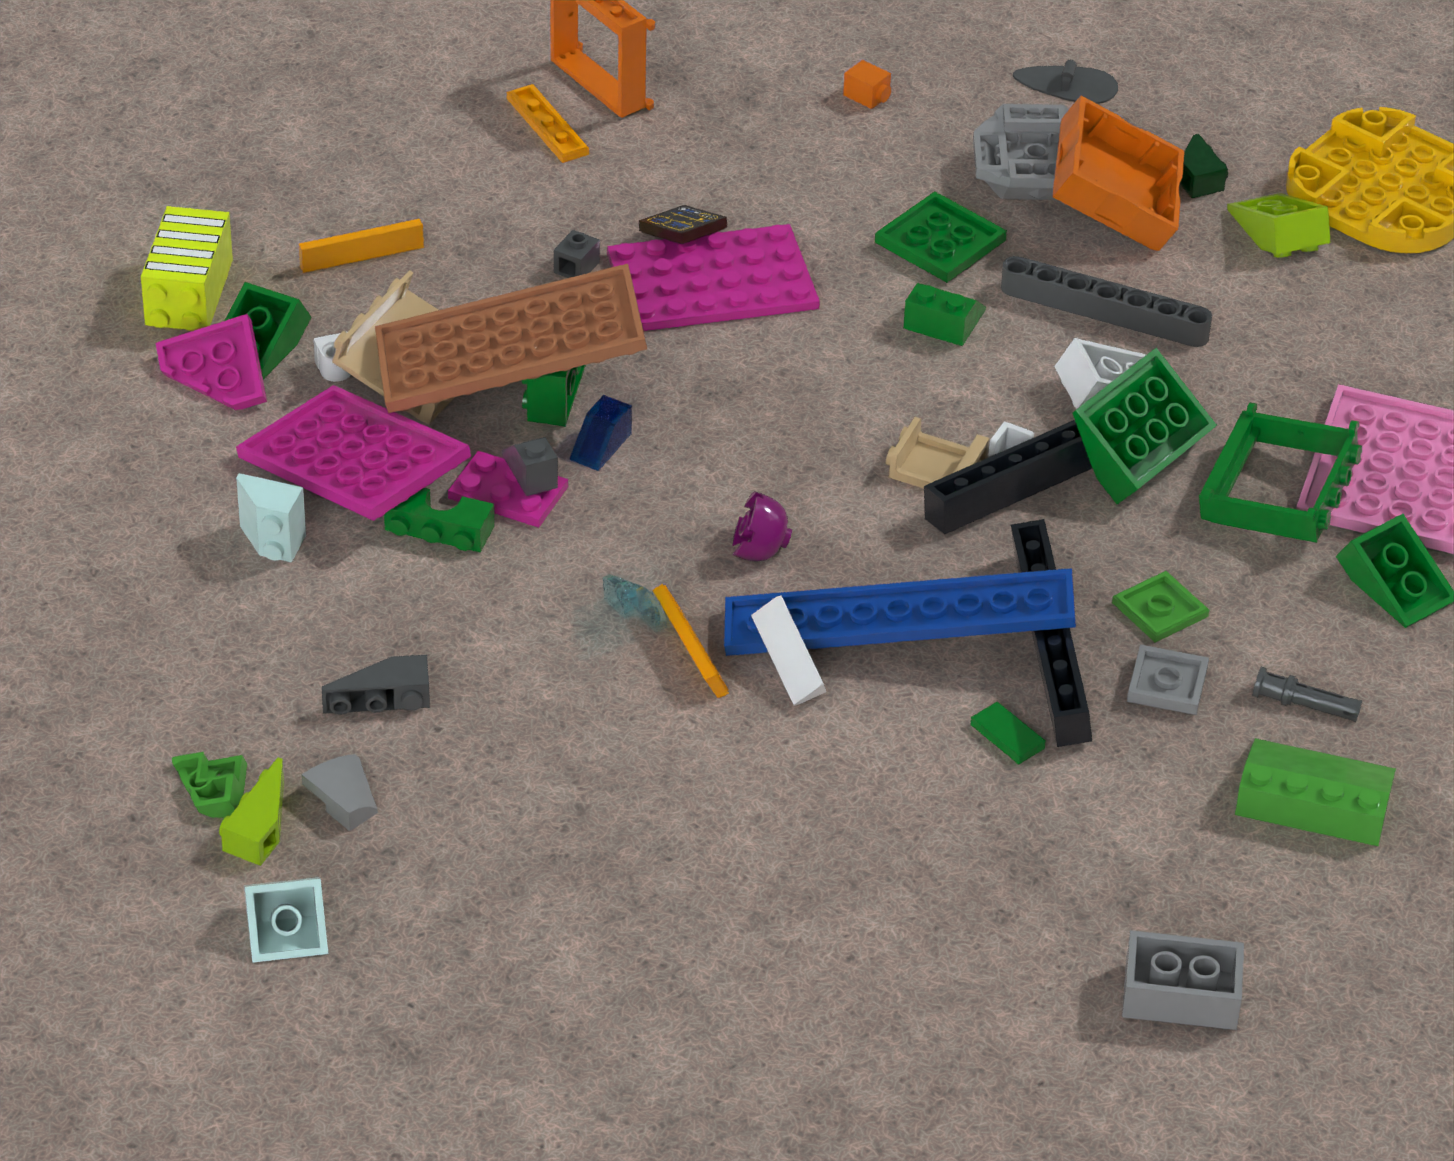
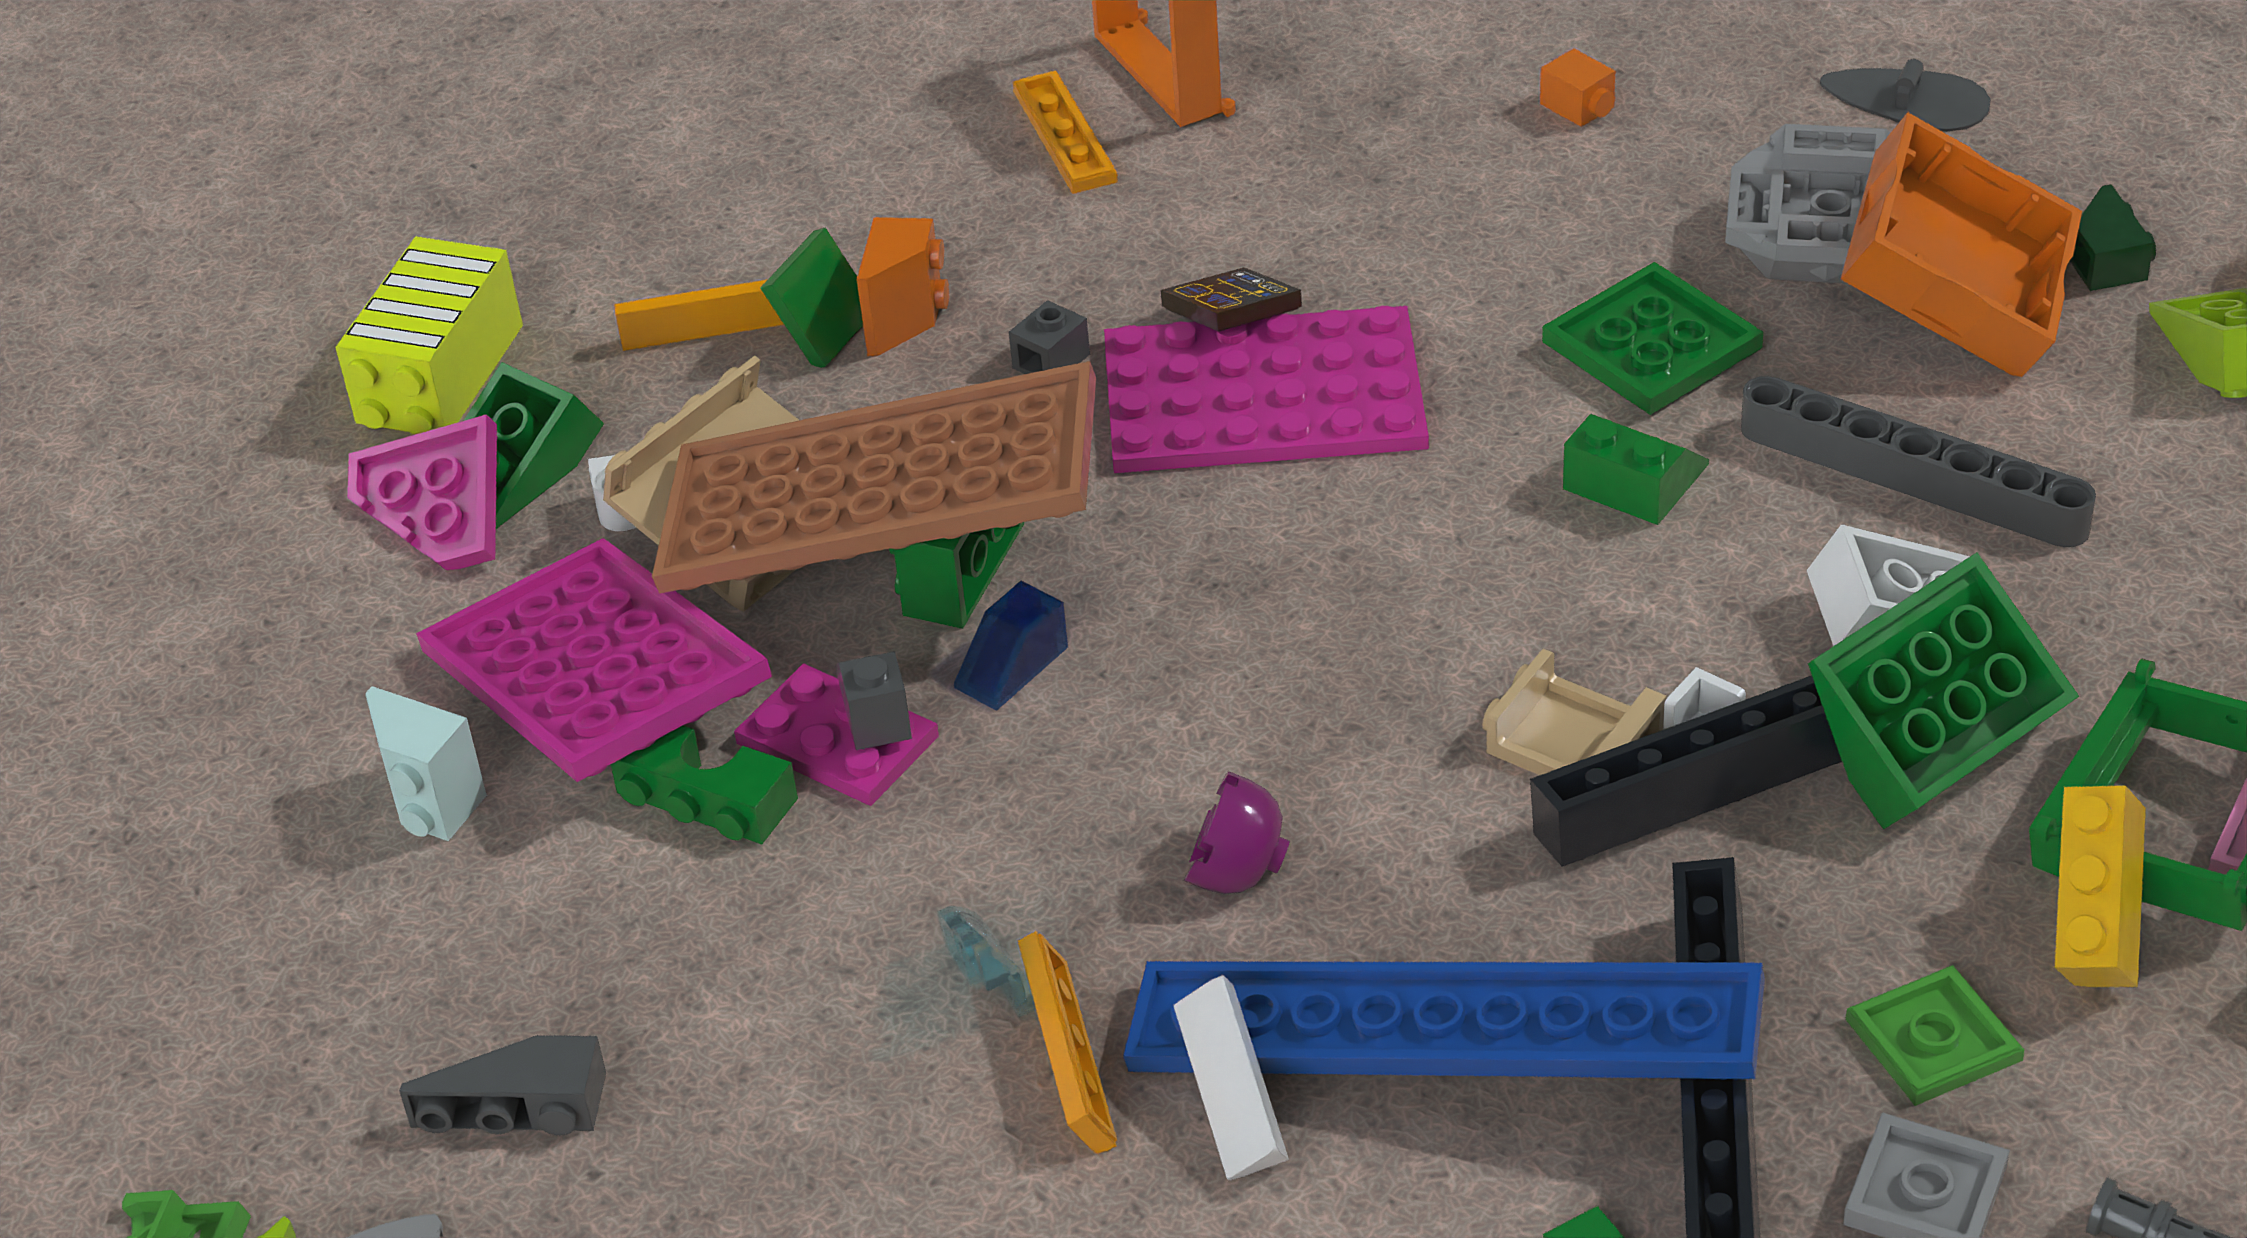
camera: 15 degrees right, 0 degrees up
(428, 234) = (816, 297): none -> green tile
(478, 221) = (900, 281): none -> orange slope
(1241, 522) = (2100, 886): none -> yellow brick

